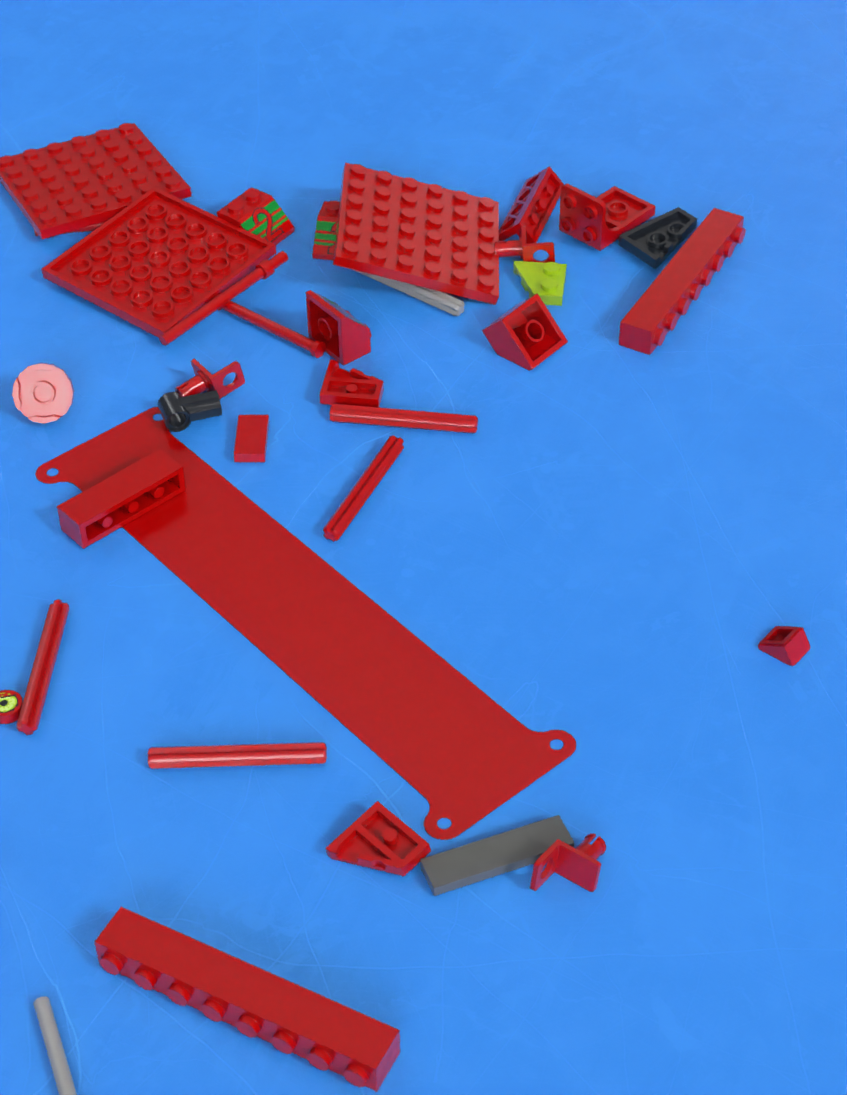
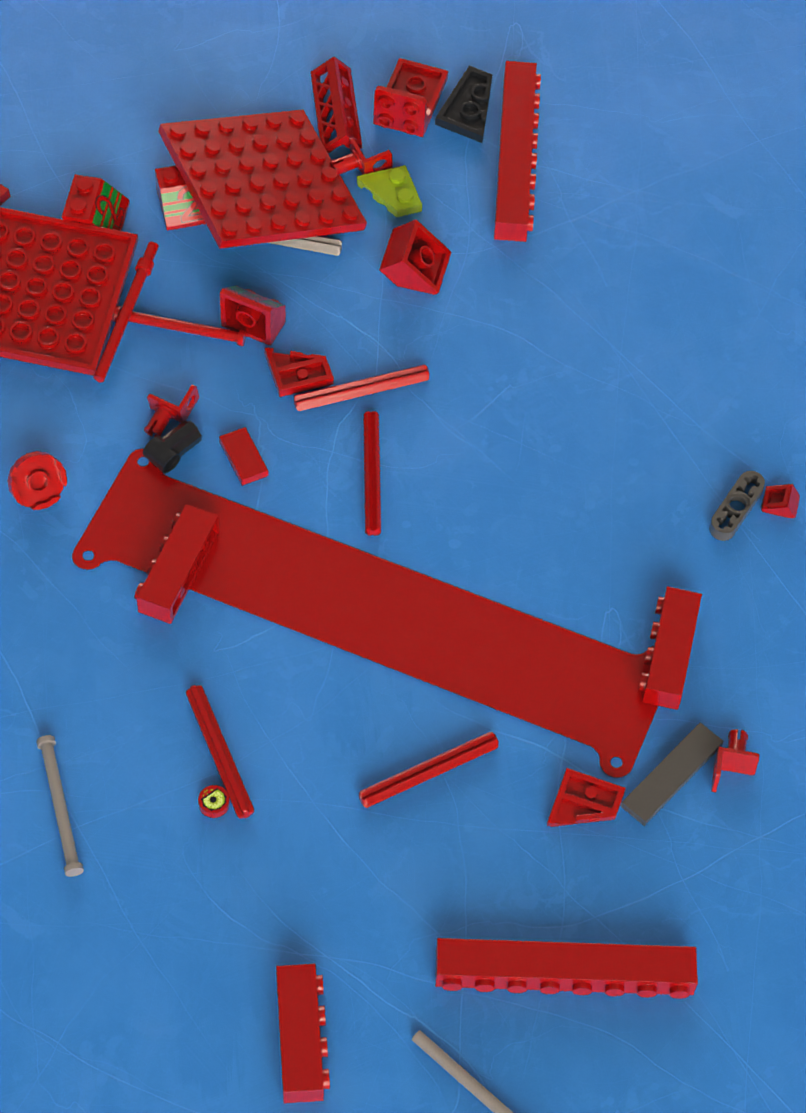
camera: 30 degrees left, 15 degrees up
(569, 732) = (671, 648): none -> red brick
(721, 643) = (737, 494): none -> dark grey beam

